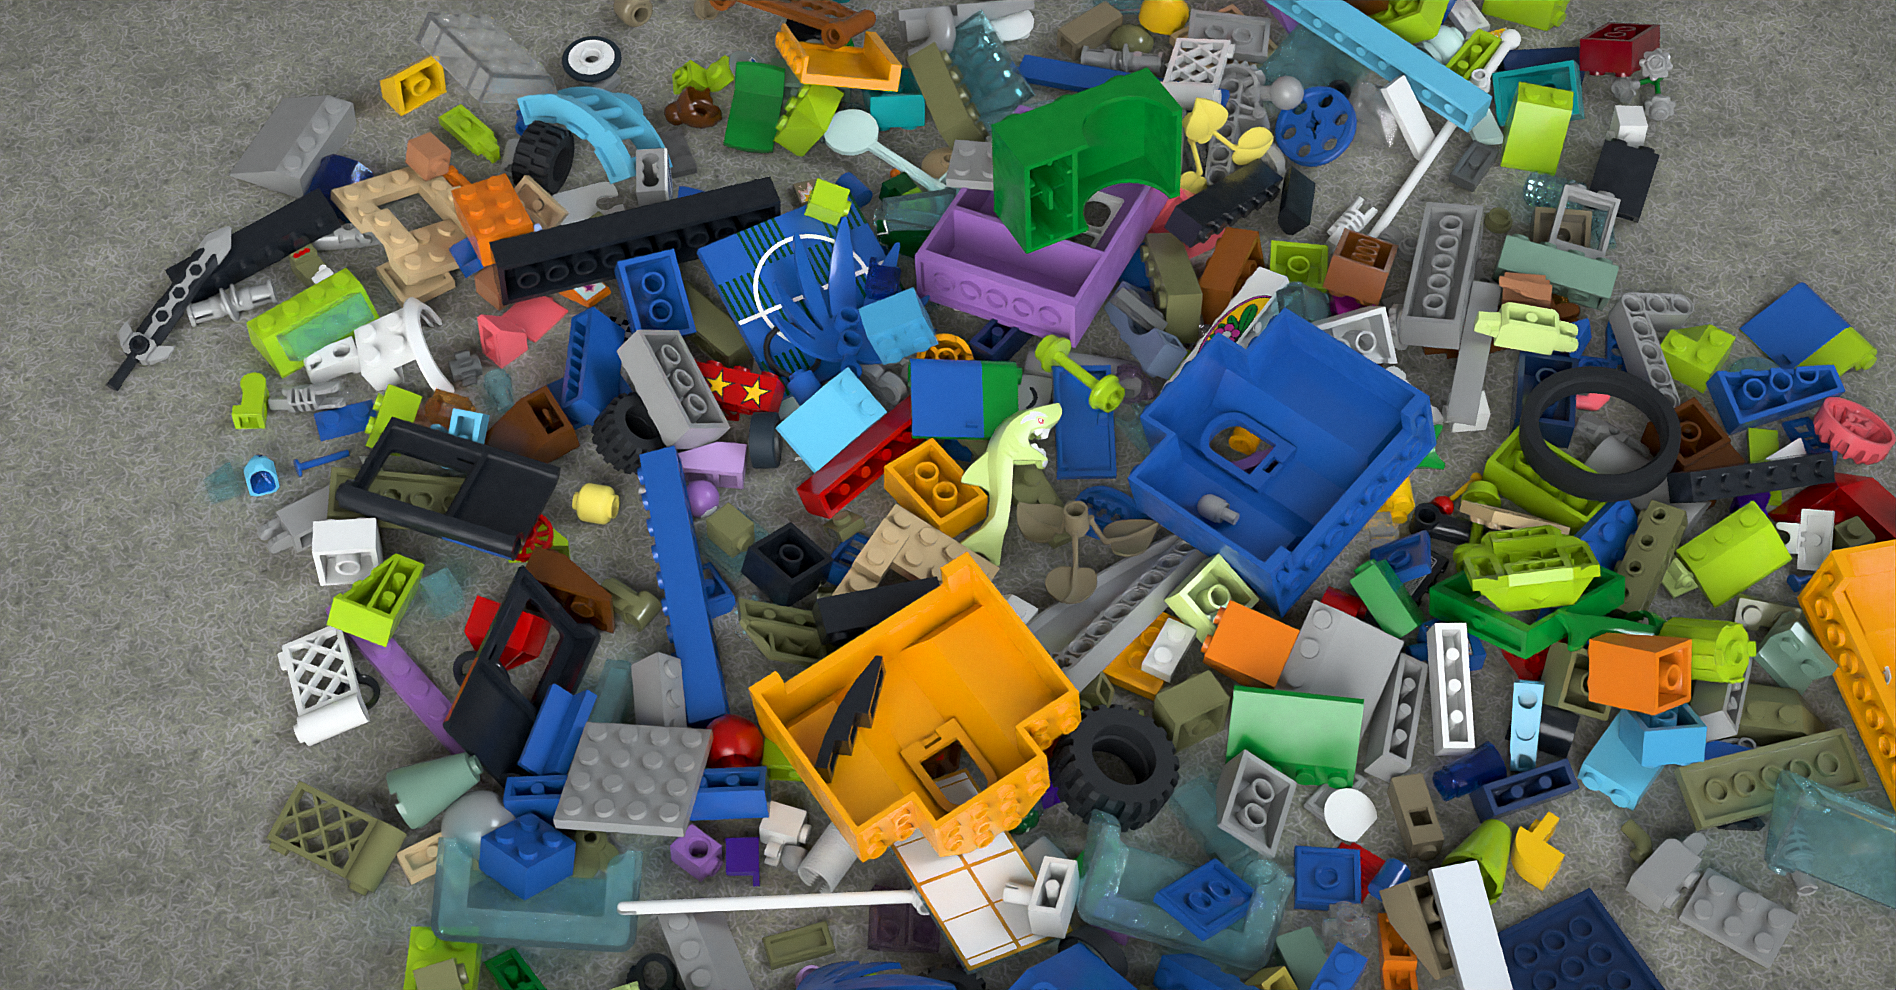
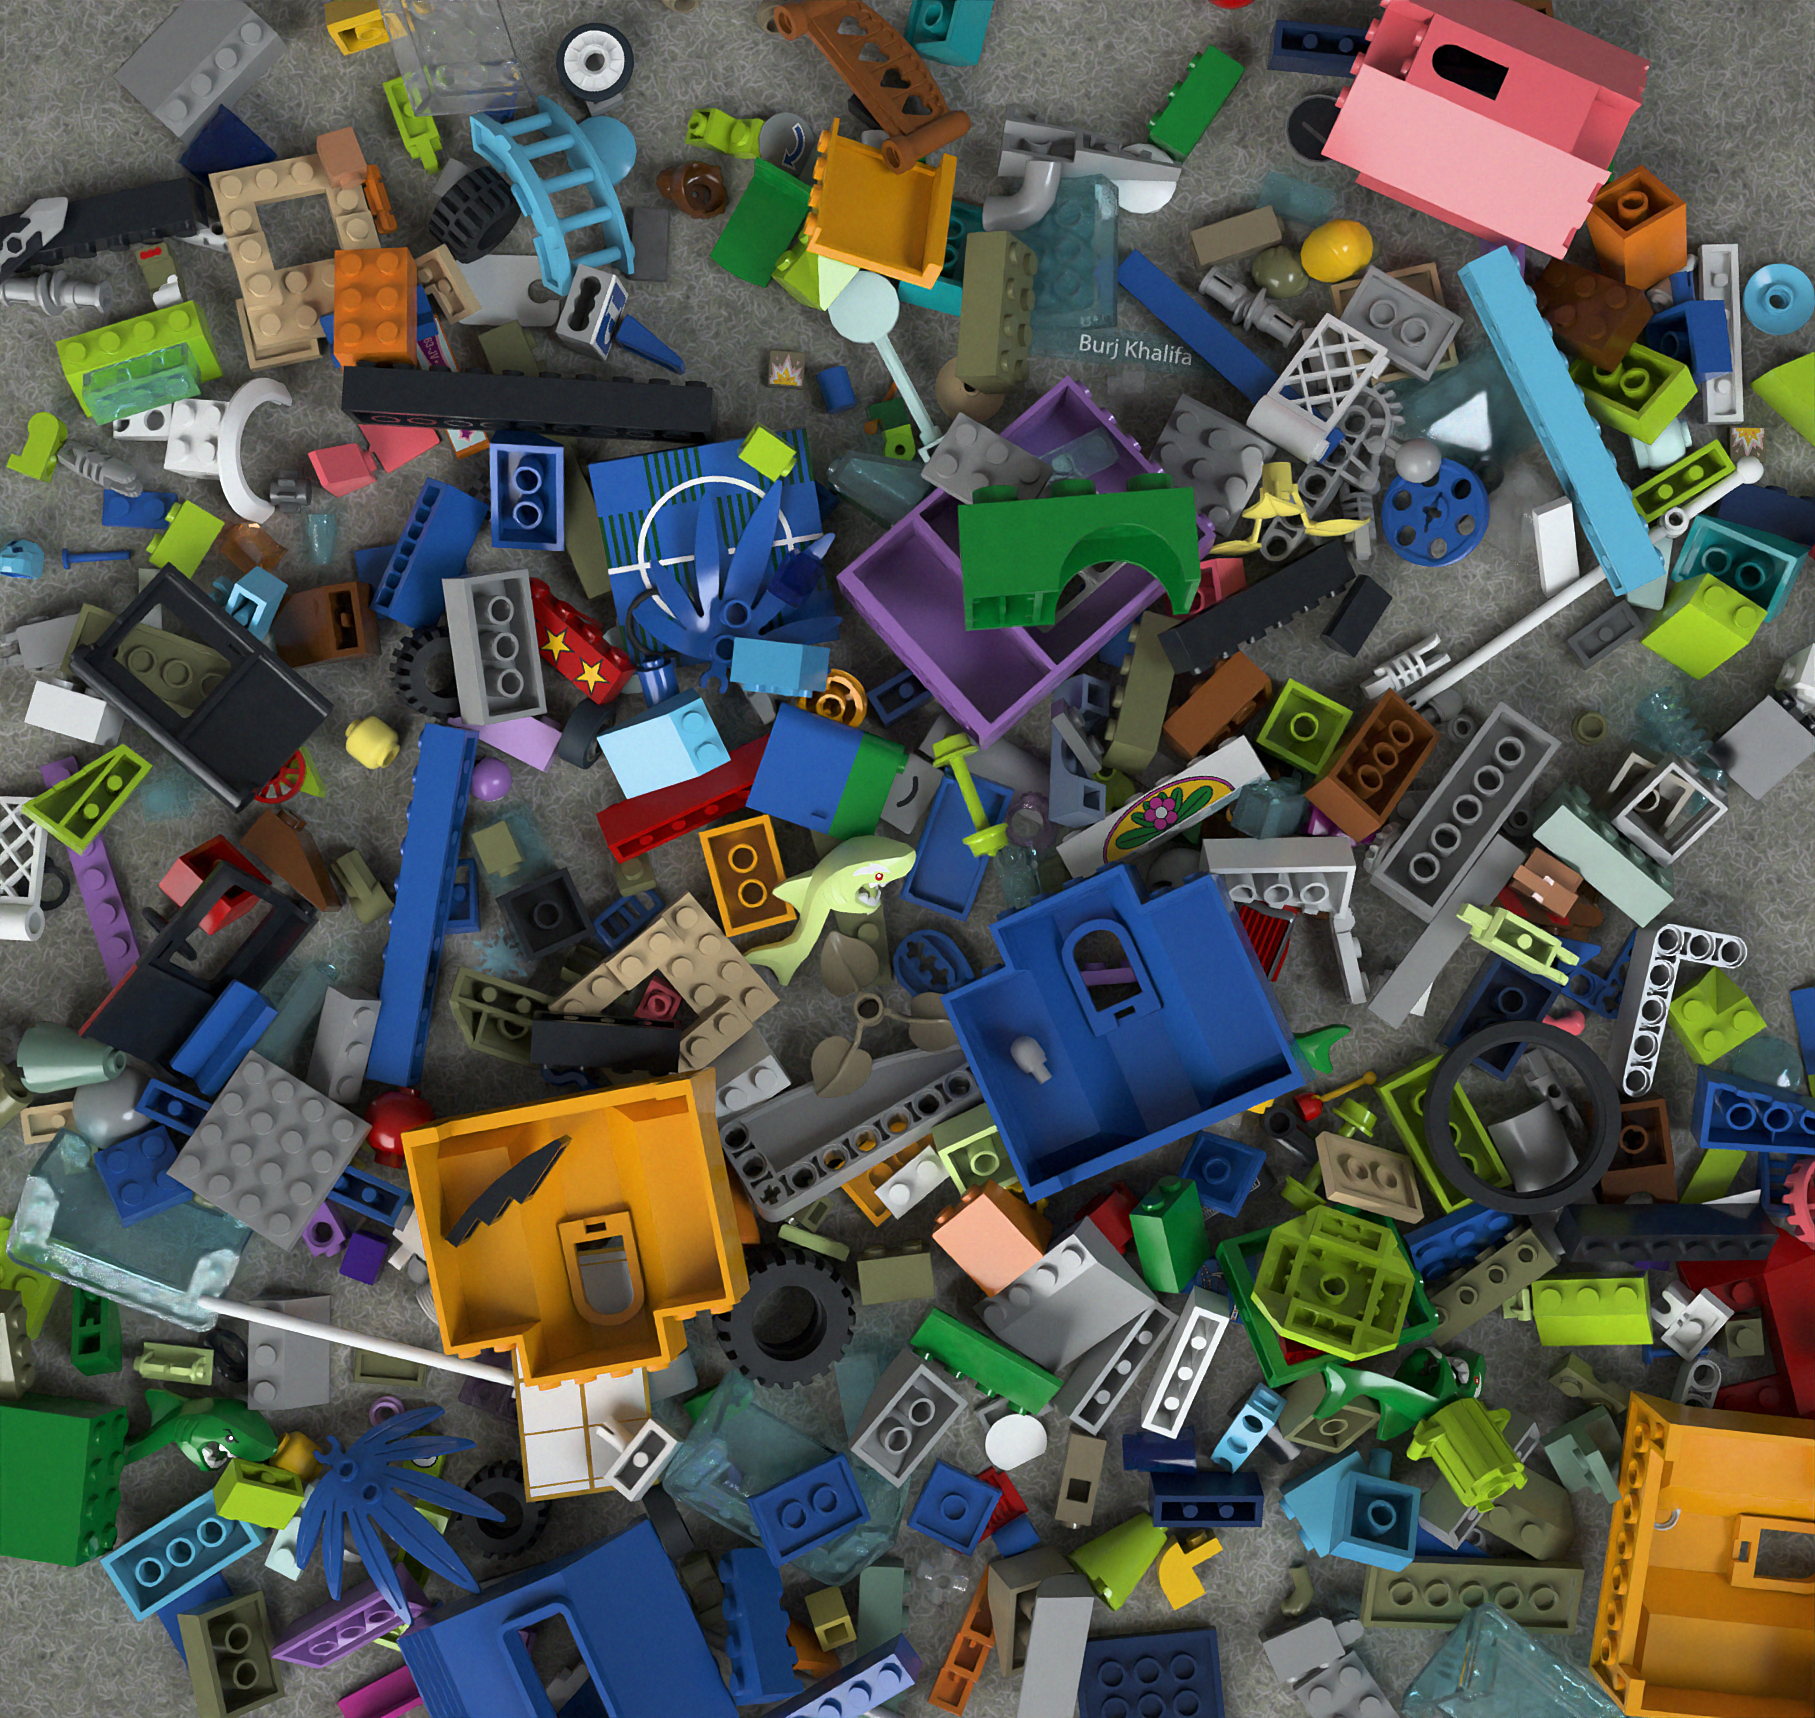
camera: 25 degrees right, 35 degrees up
(1640, 671) = (1381, 1461): orange slope -> none

